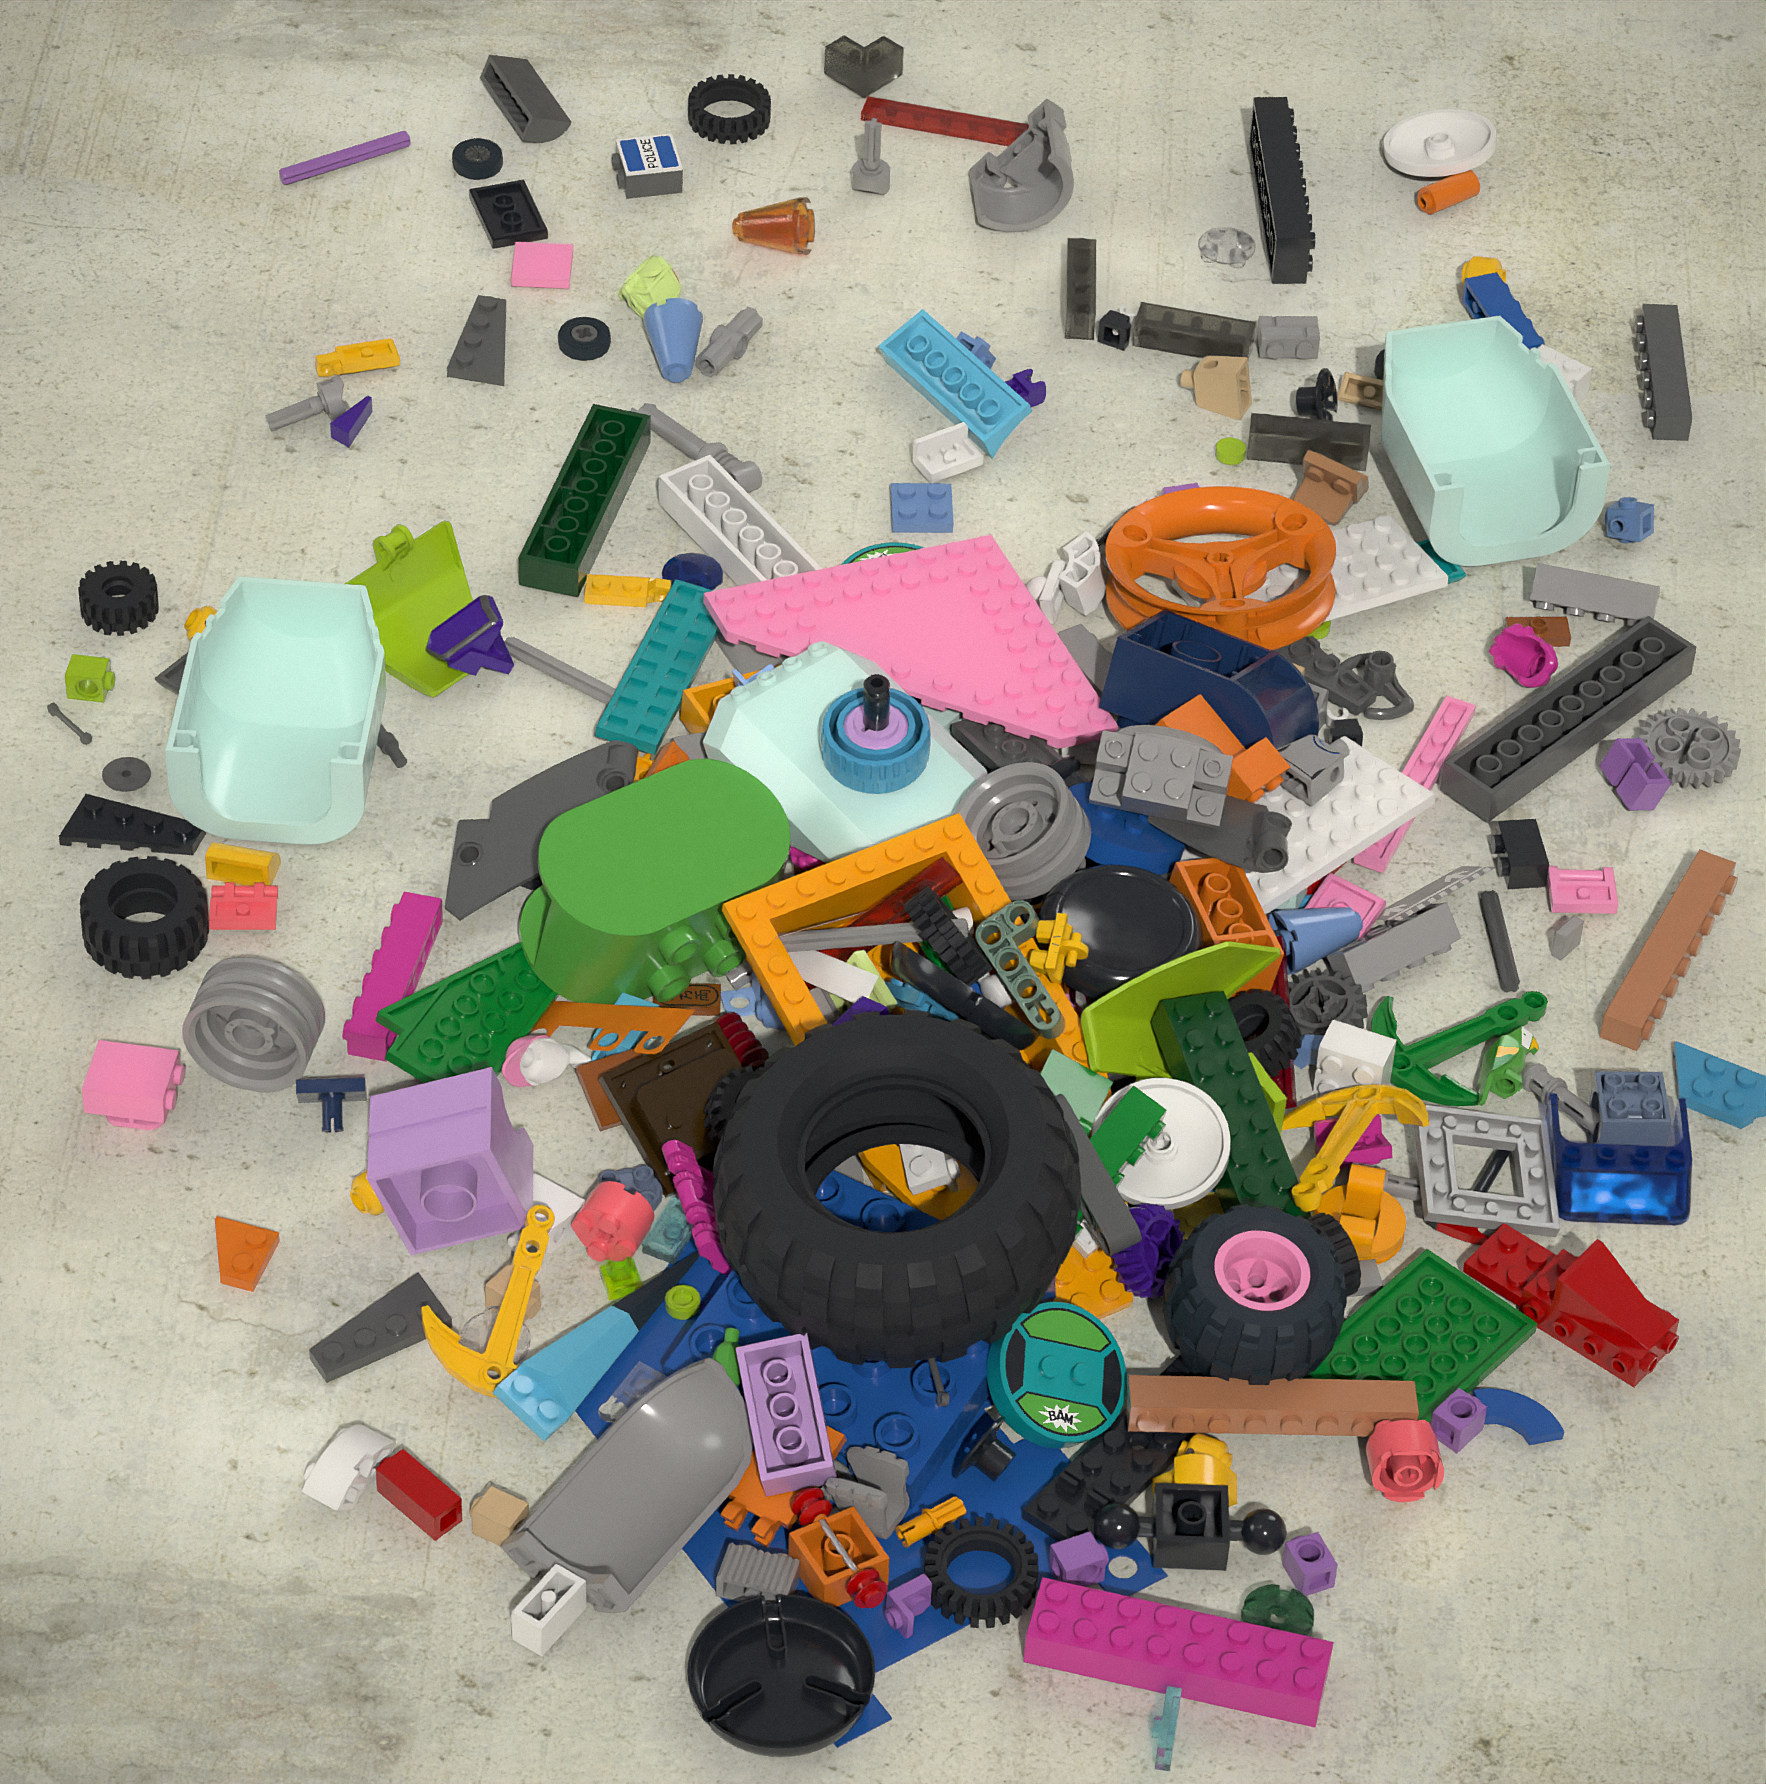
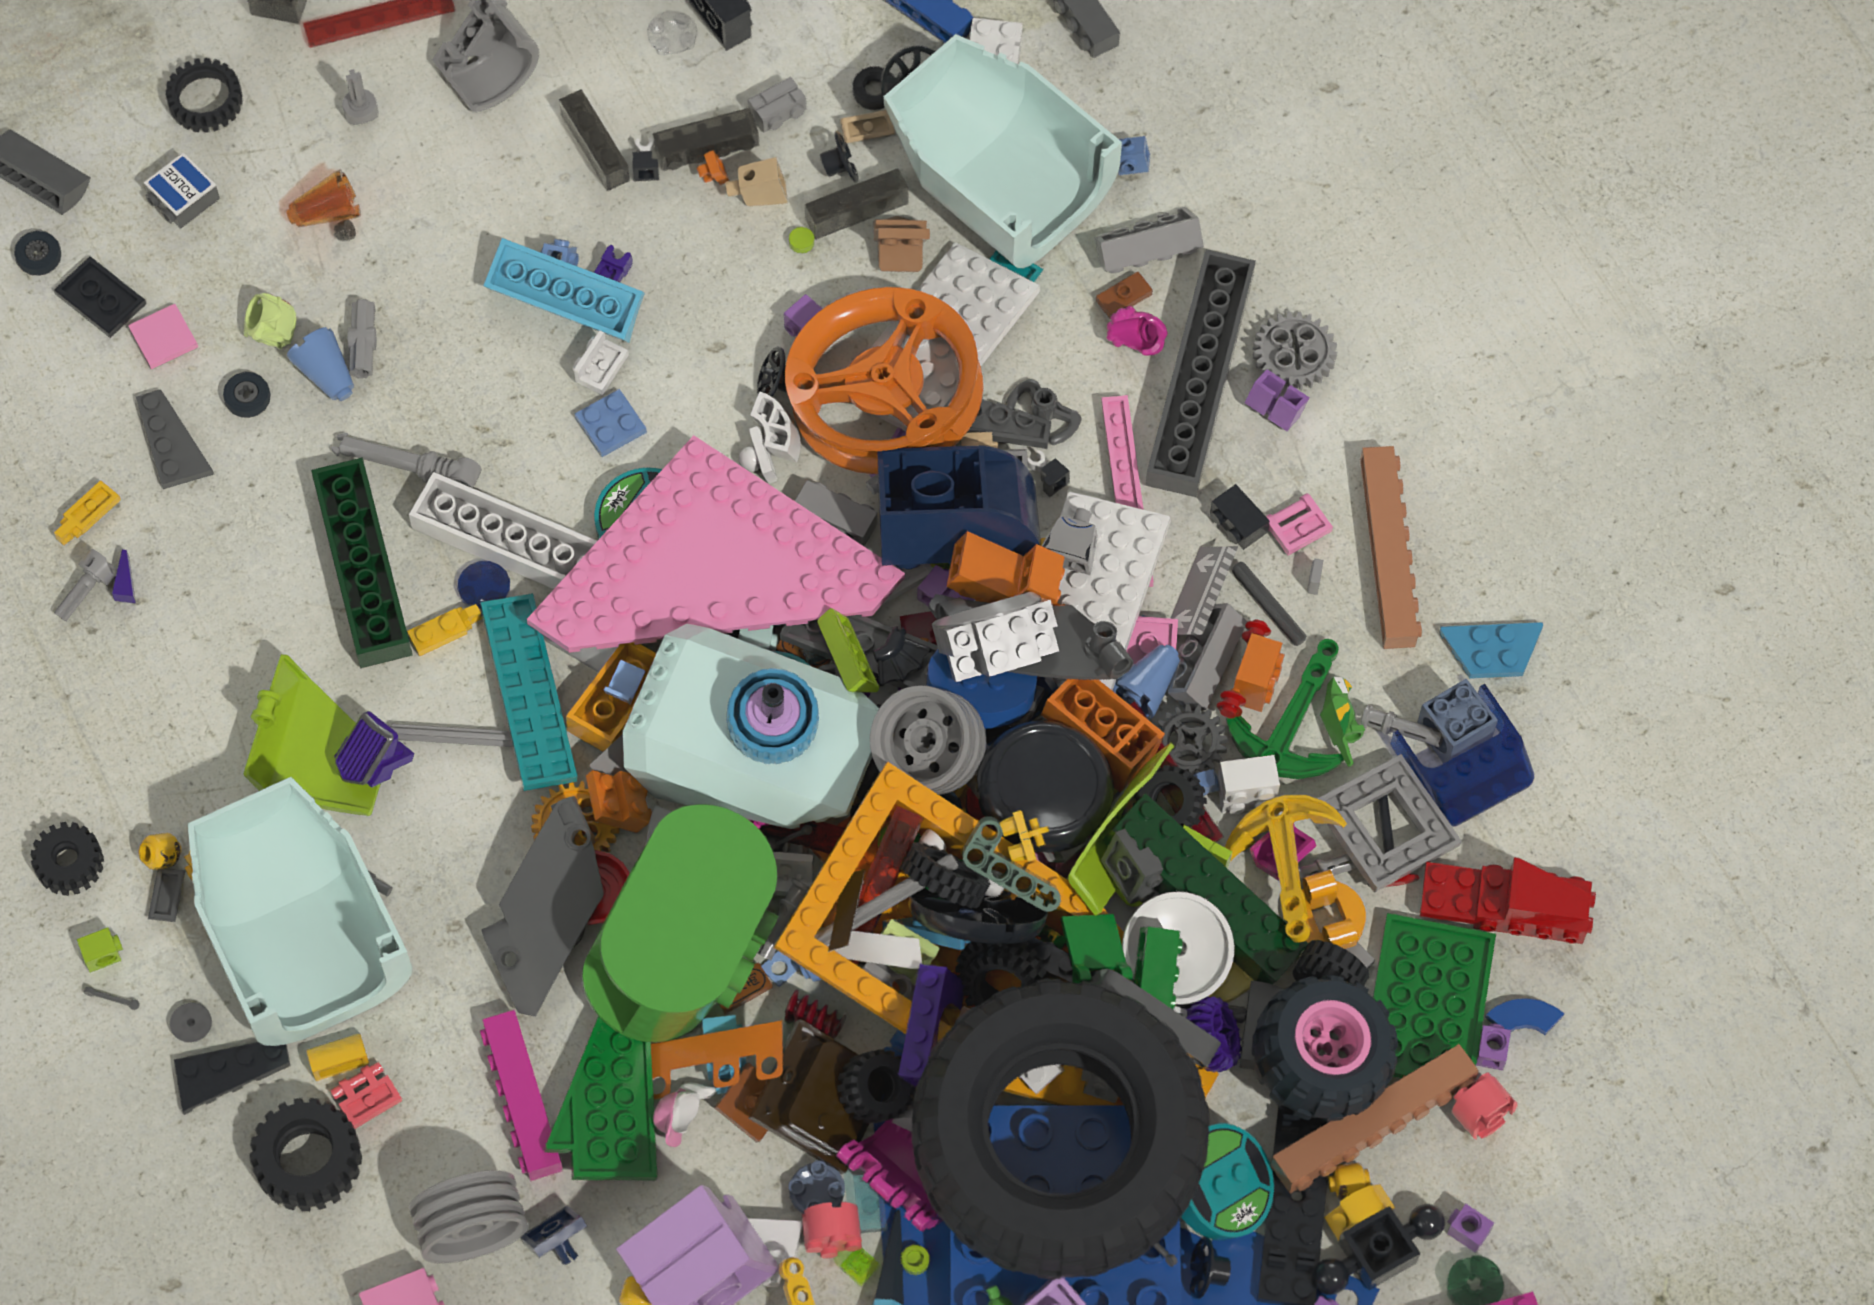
camera: 30 degrees left, 20 degrees up
(780, 258) = (344, 230): none -> clear smoke hinge
(1004, 745) = (847, 652): none -> lime slope
(1161, 1041) = (1132, 869): none -> dark grey plate
(1184, 356) = (713, 169): none -> orange tile
(1431, 979) = (1256, 674): none -> orange brick

